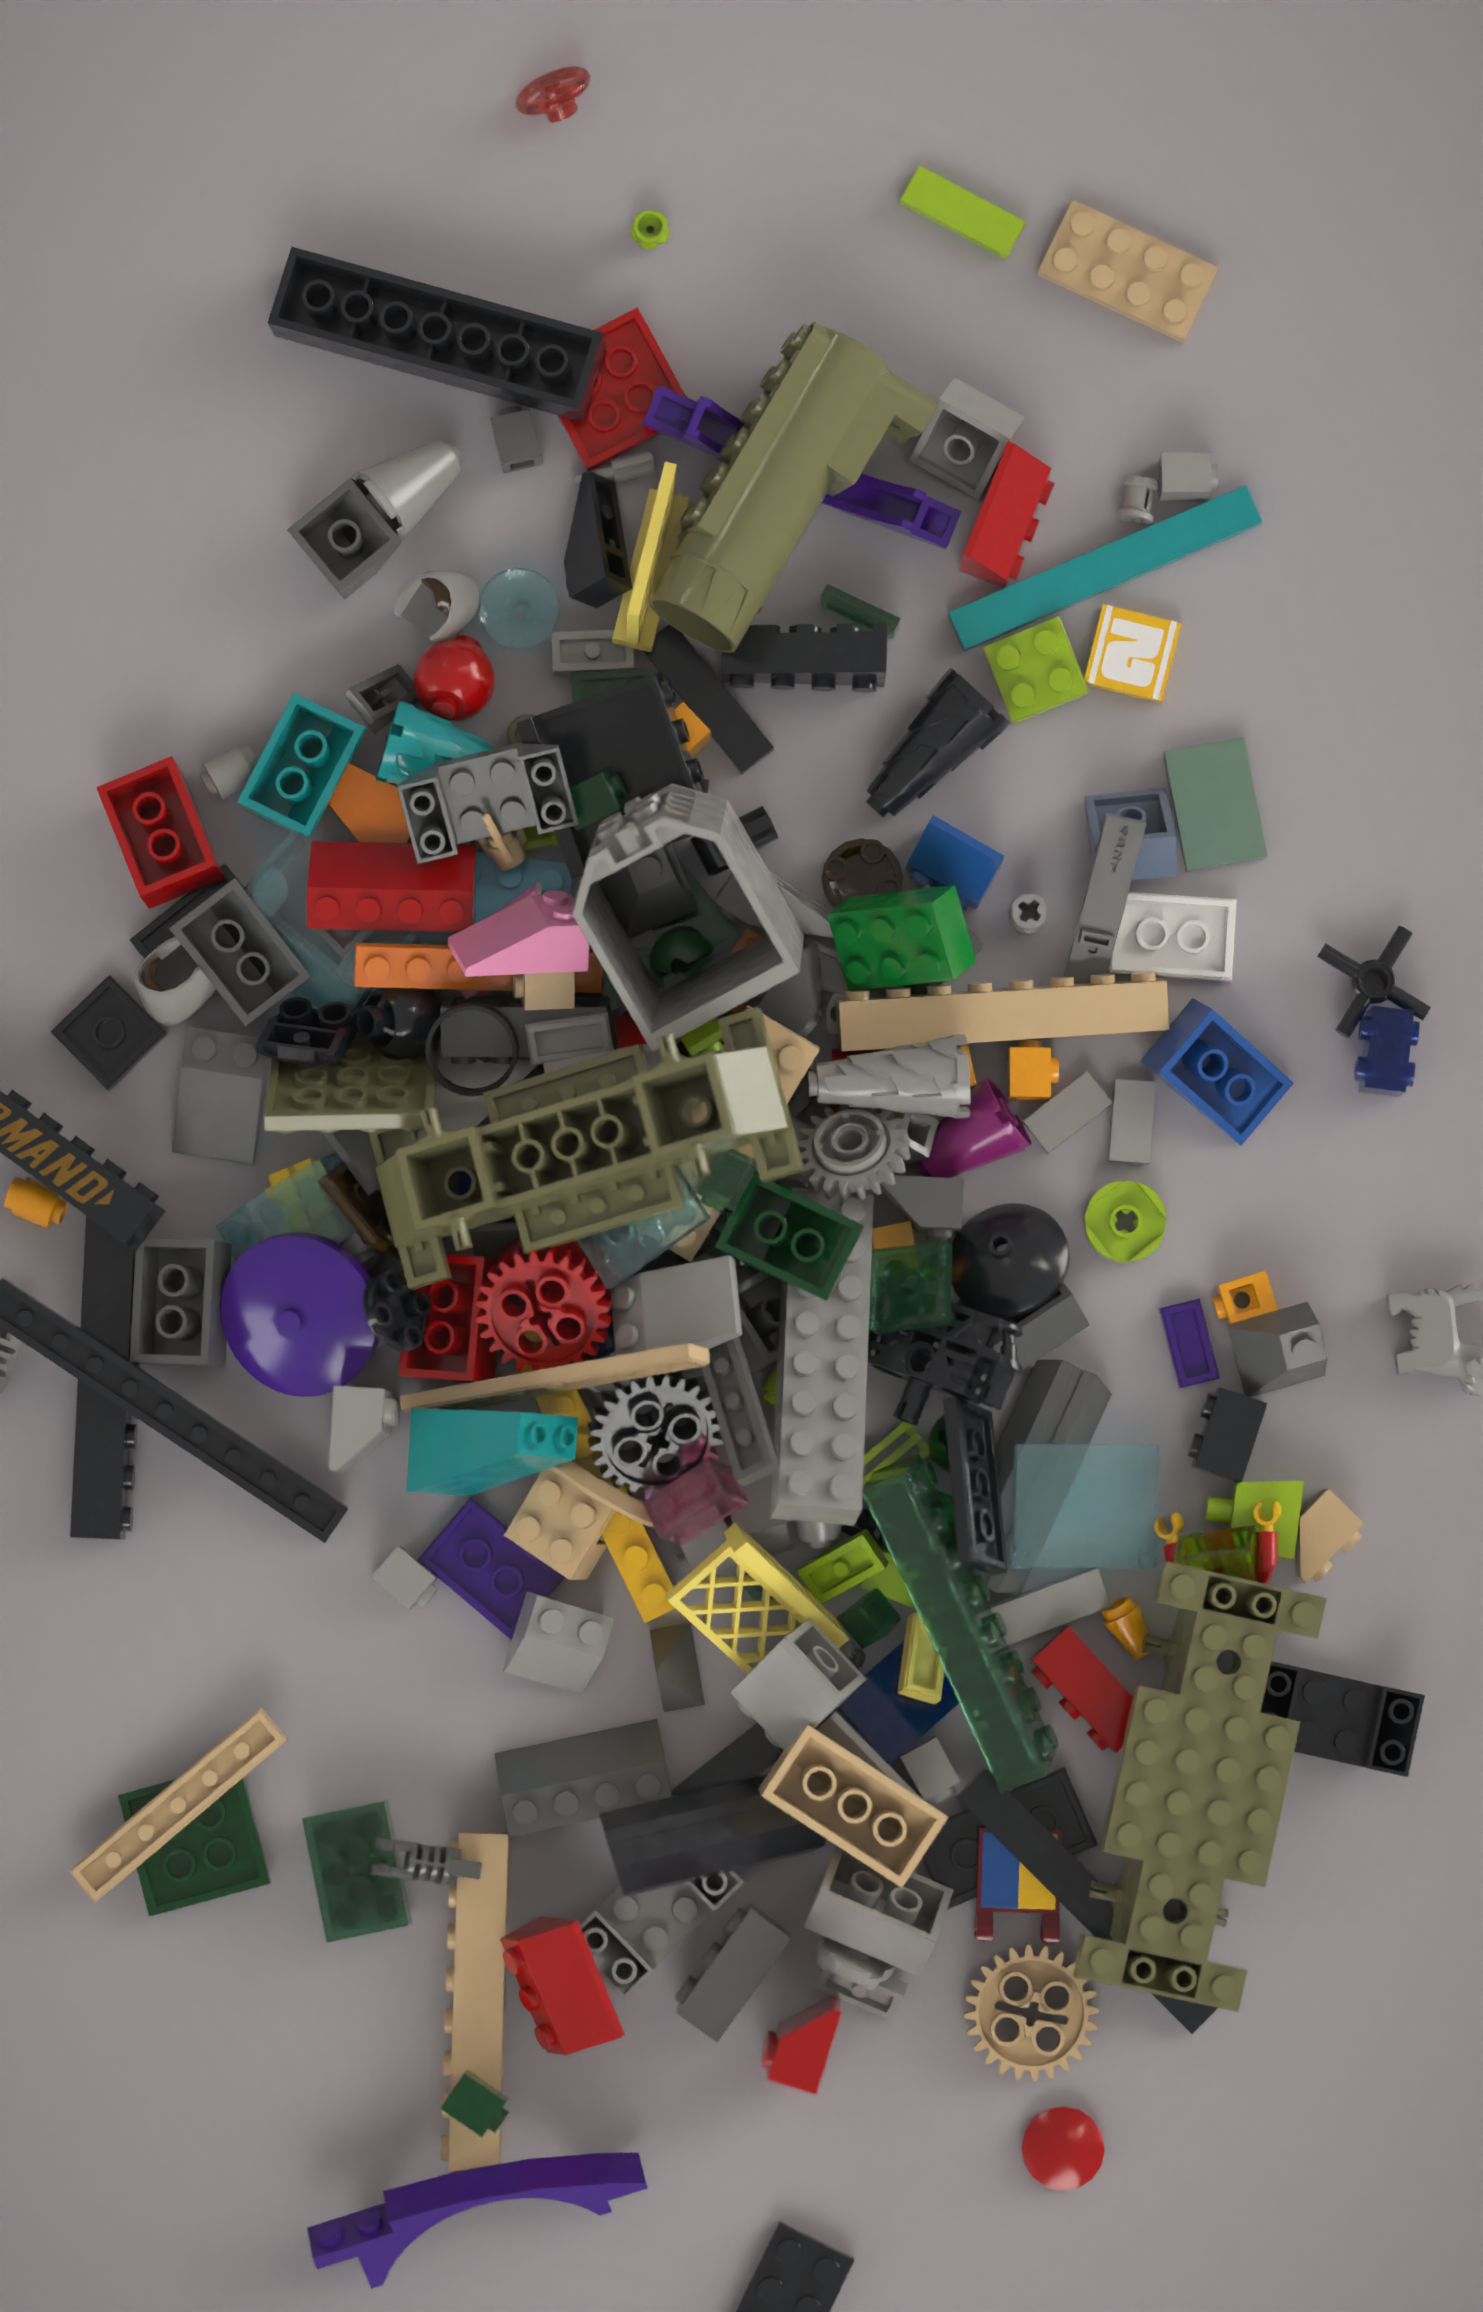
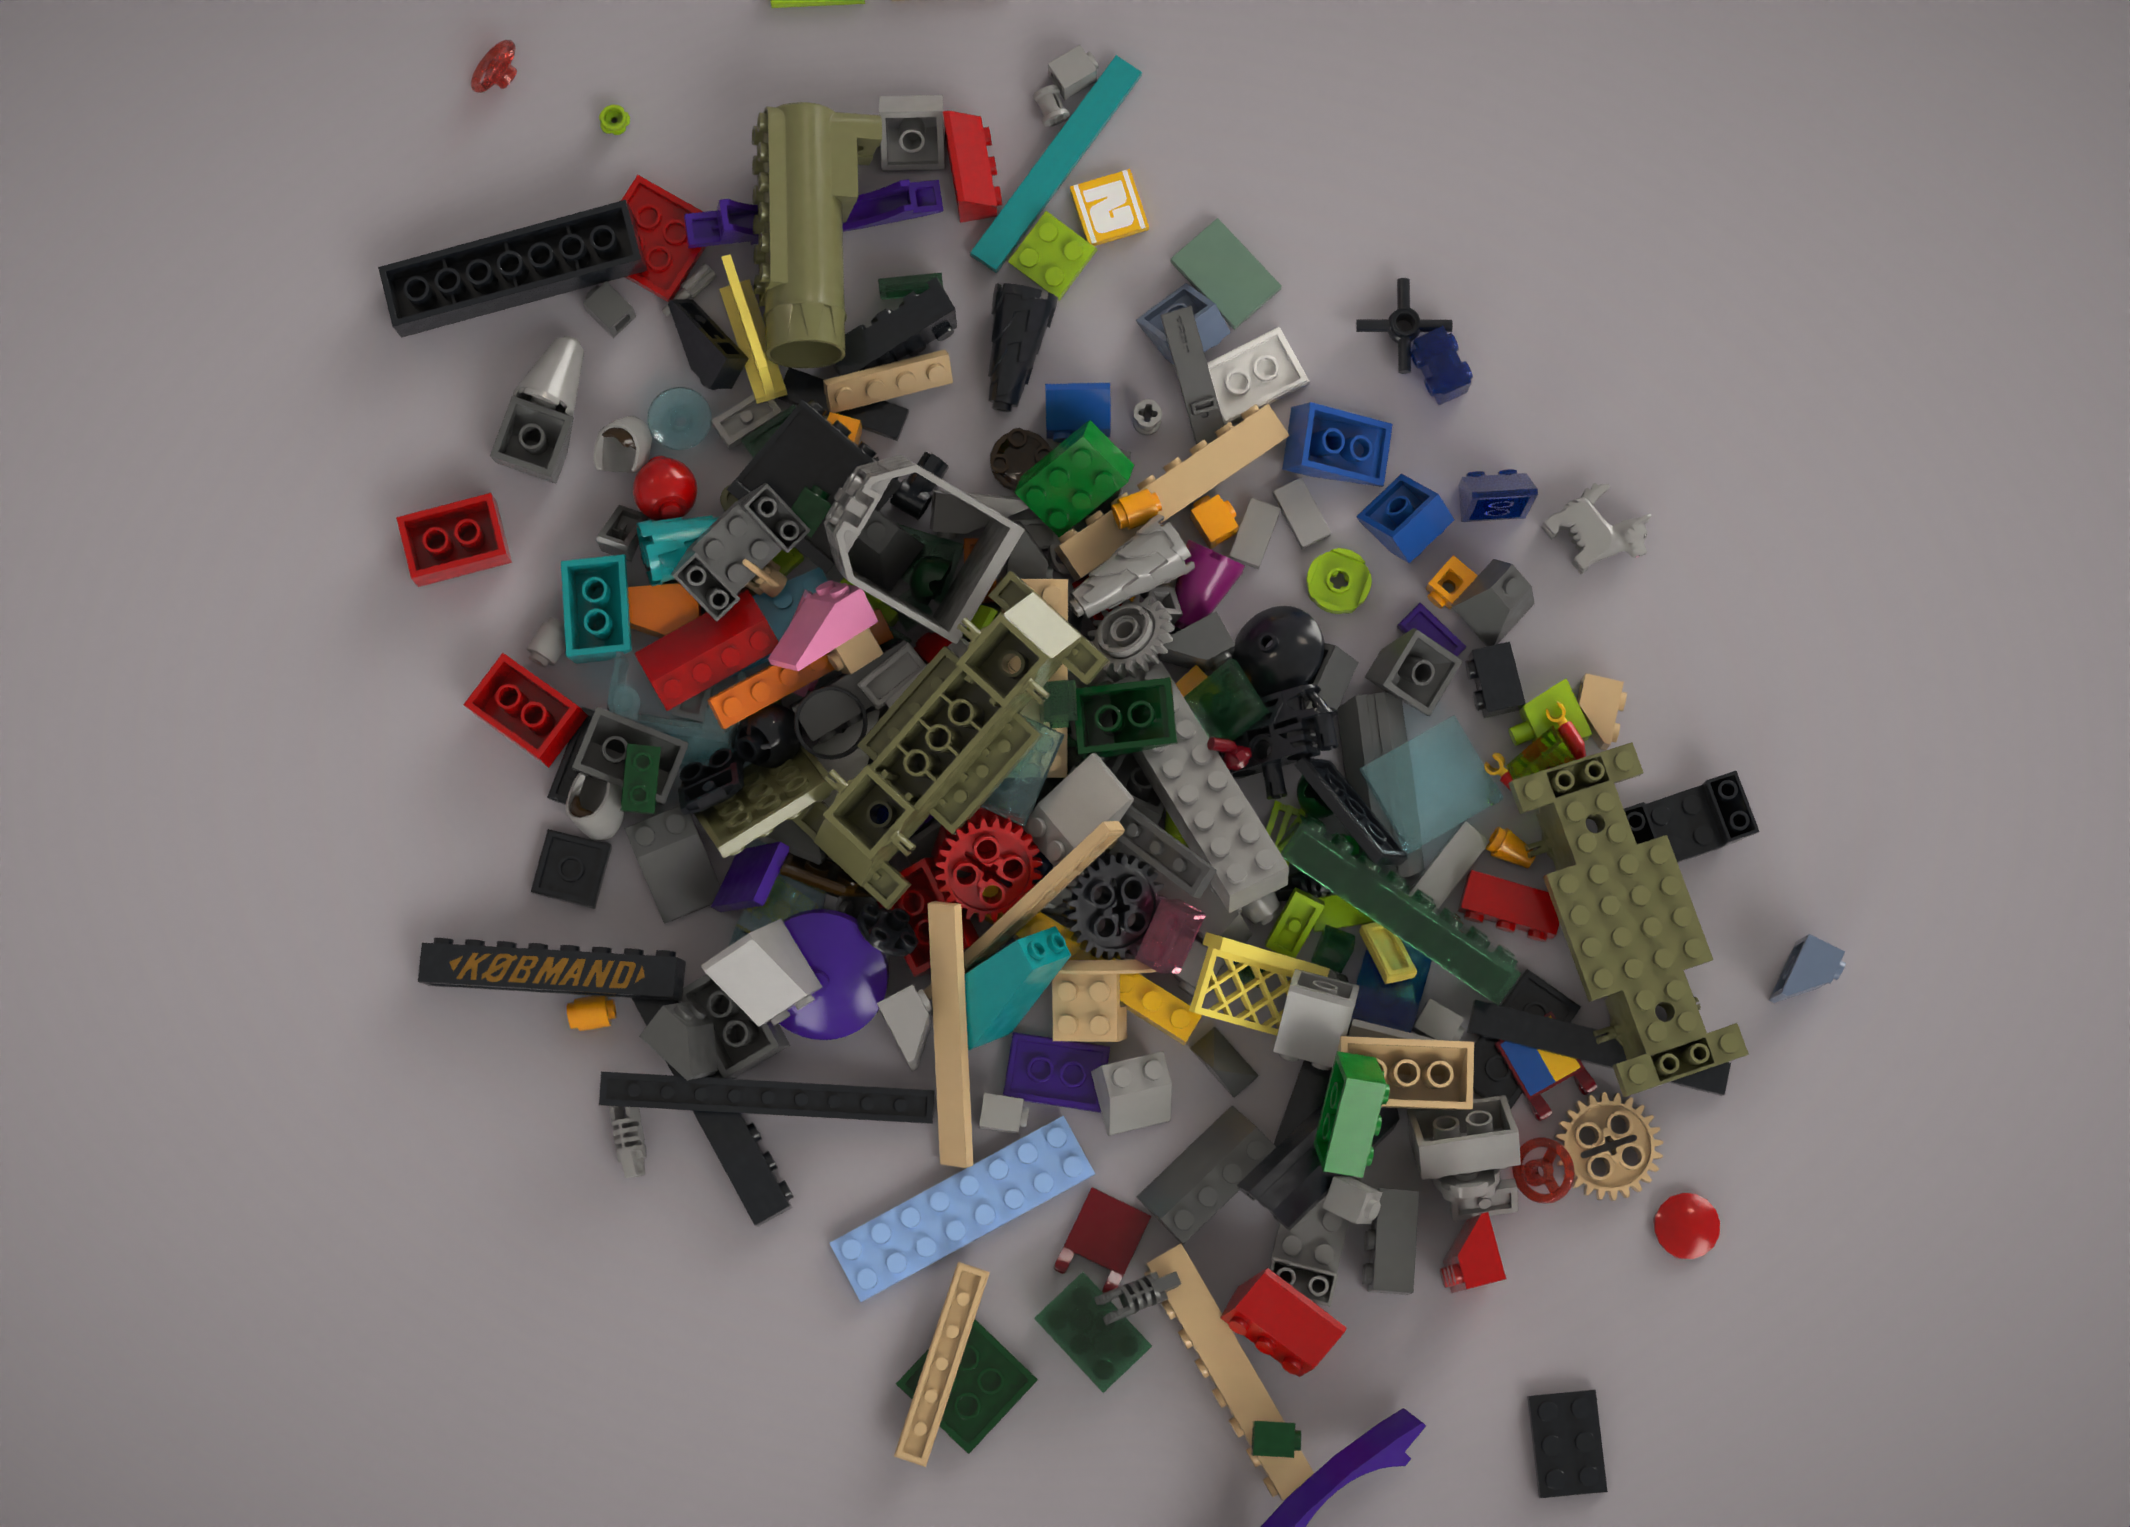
camera: 35 degrees left, 5 degrees down
(109, 1297) = (684, 1039): none -> dark grey slope
(195, 598) = (454, 540): none -> red brick
(232, 986) = (640, 779): none -> dark green brick
(235, 1281) = (765, 974): none -> light grey slope
(288, 1164) = (750, 877): none -> dark purple tile
(302, 1652) = (962, 1209): none -> light blue plate
(397, 1462) = (950, 1034): none -> tan tile
(436, 1773) = (1104, 1234): none -> dark red flag
(713, 1905) = (1353, 1200): none -> light grey brick
(762, 1817) = (1351, 1114): none -> green brick
(768, 704) = (888, 381): none -> tan plate
(885, 1350) = (1234, 756): none -> dark red plate
(924, 1993) = (1529, 1173): none -> clear red piece
(946, 1013) = (1136, 509): none -> light orange brick
(1144, 1371) = (1414, 670): none -> dark grey slope
(1242, 1196) = (1406, 517): none -> blue slope
(1355, 1232) = (1496, 496): none -> clear blue slope
(1365, 1957) = (1808, 968): none -> sand blue slope

